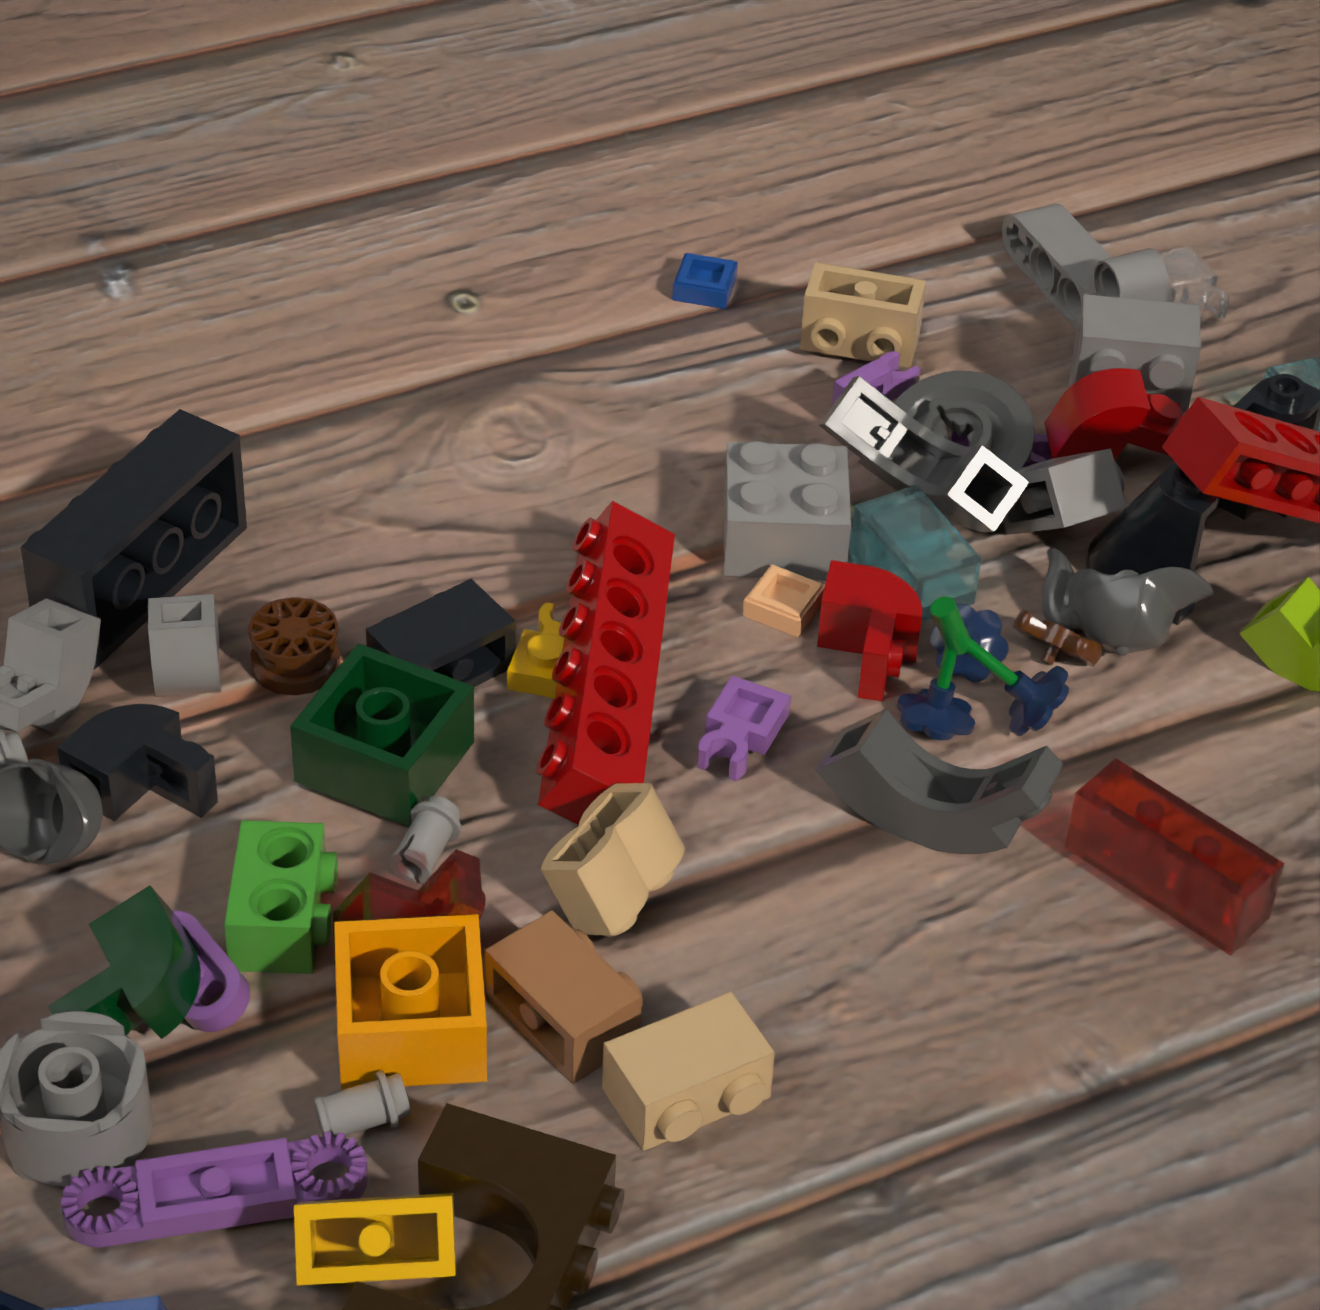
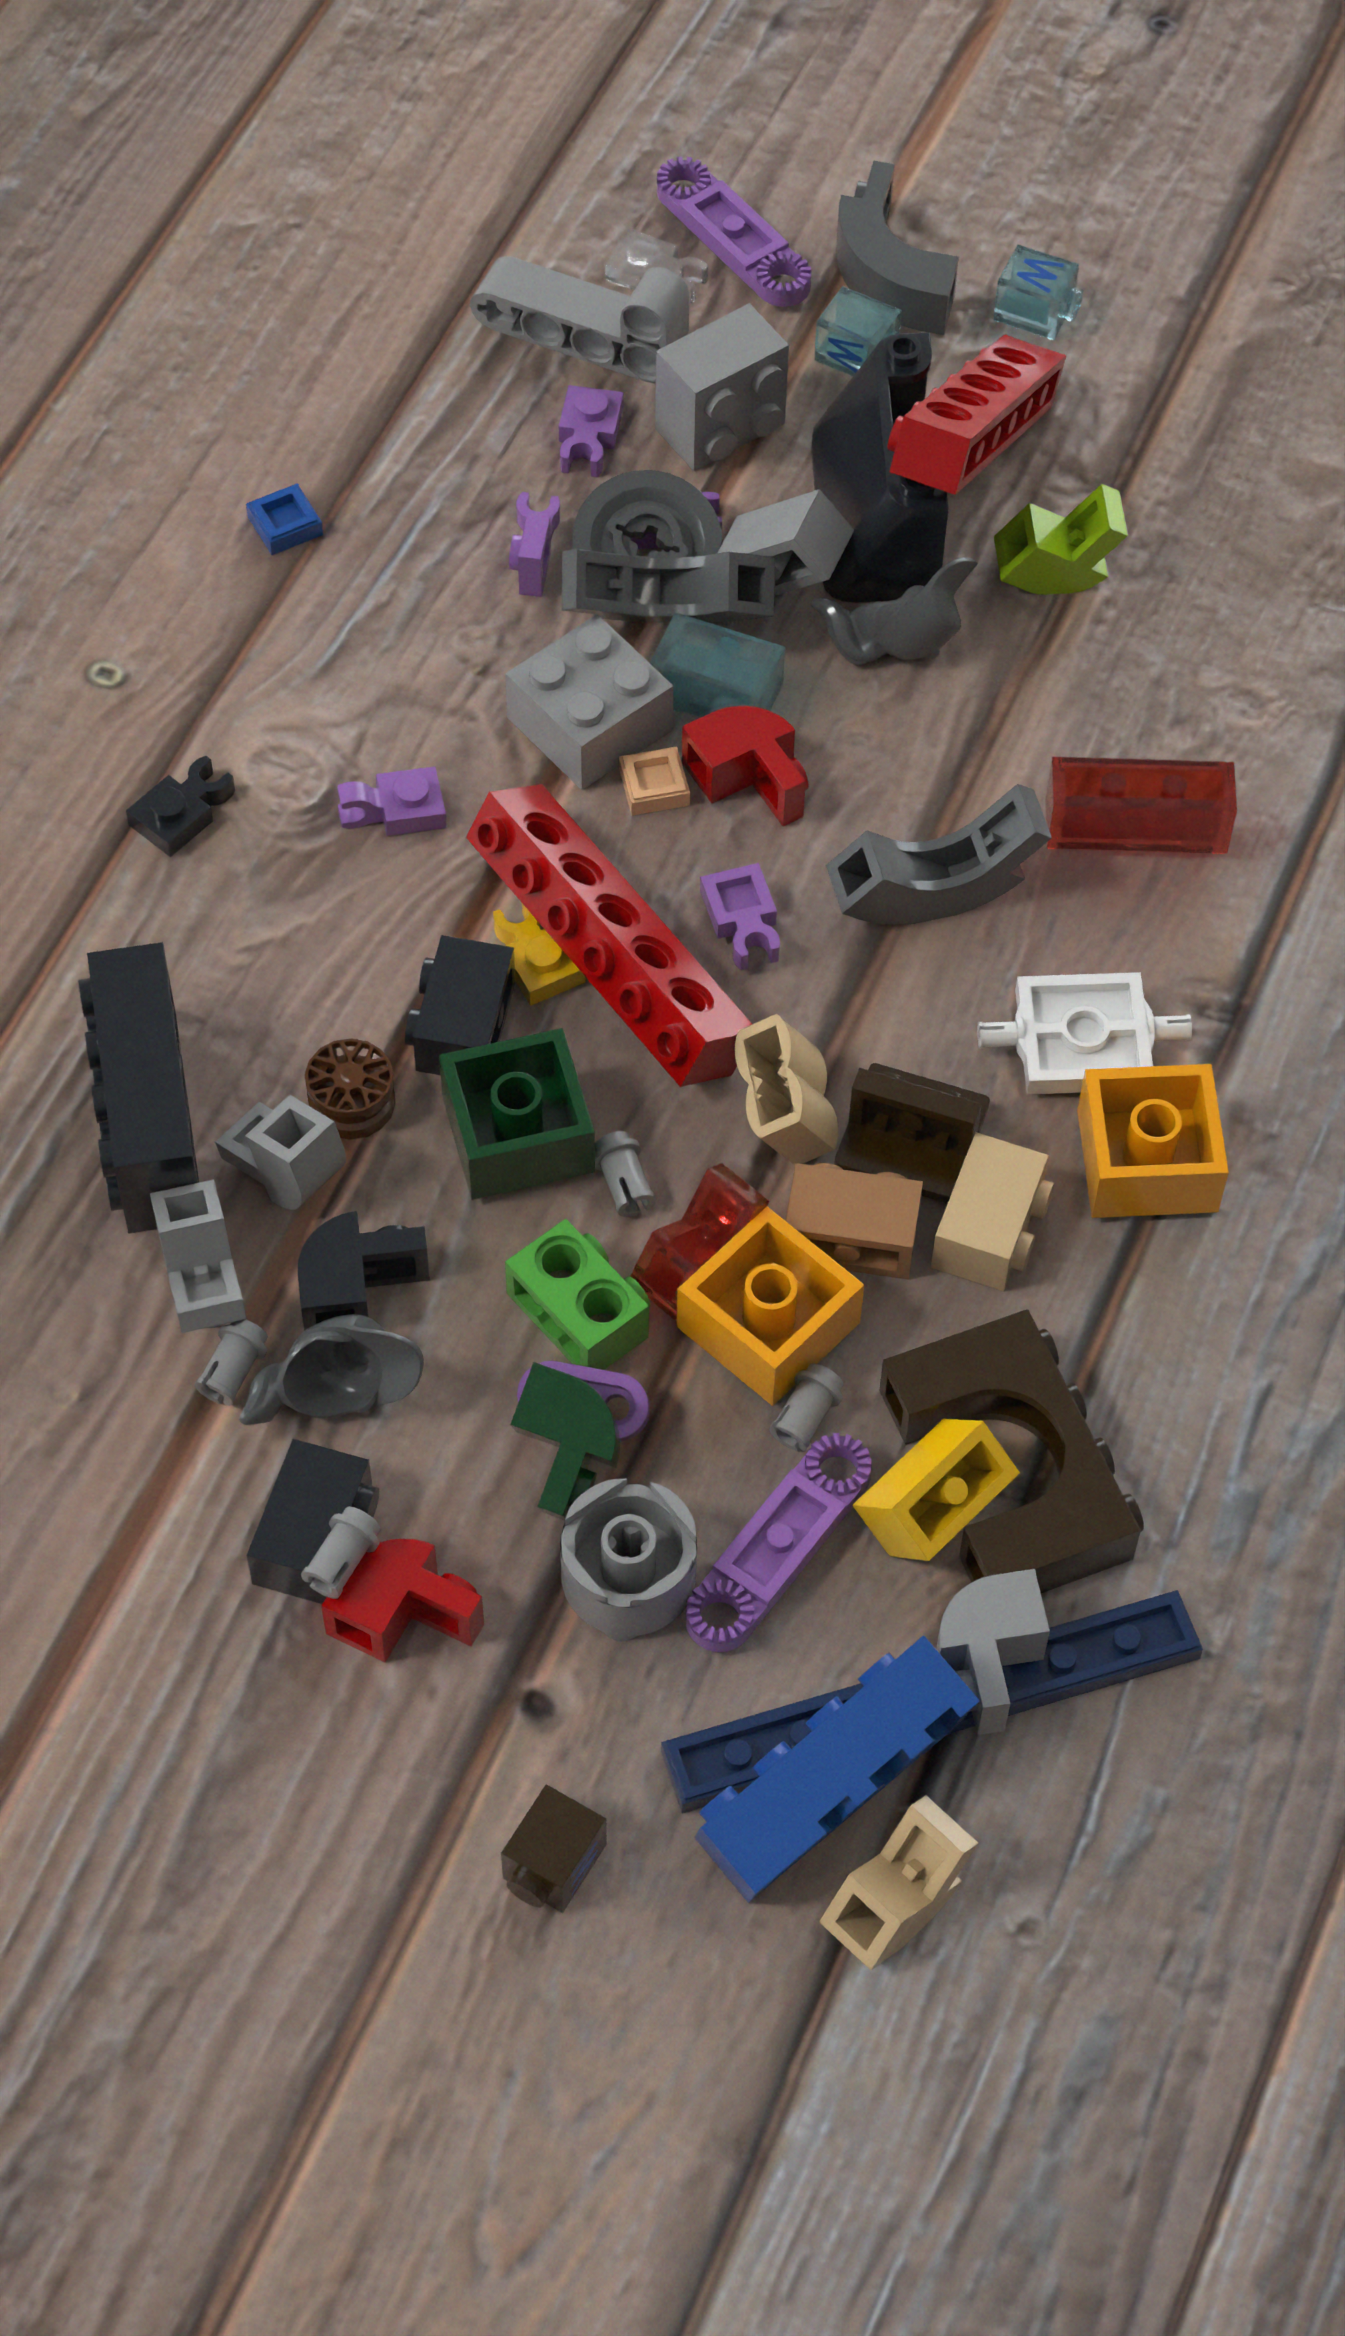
camera: 40 degrees left, 15 degrees up
(404, 405) = (178, 812): none -> black plate
(565, 495) = (402, 800): none -> medium lavender plate
(695, 954) = (910, 1128): none -> dark brown bracket
(861, 313) = (465, 474): tan brick -> none
(887, 1110) = (1152, 1140): none -> light orange brick
(933, 998) = (1081, 1025): none -> white plate
(973, 647) = (836, 726): dark blue plant -> none
(1012, 347) = (588, 425): none -> medium lavender plate
(1057, 639) = (882, 676): reddish brown piece -> none
(1108, 413) = (747, 451): red brick -> none
(1276, 291) = (734, 232): none -> medium lavender plate

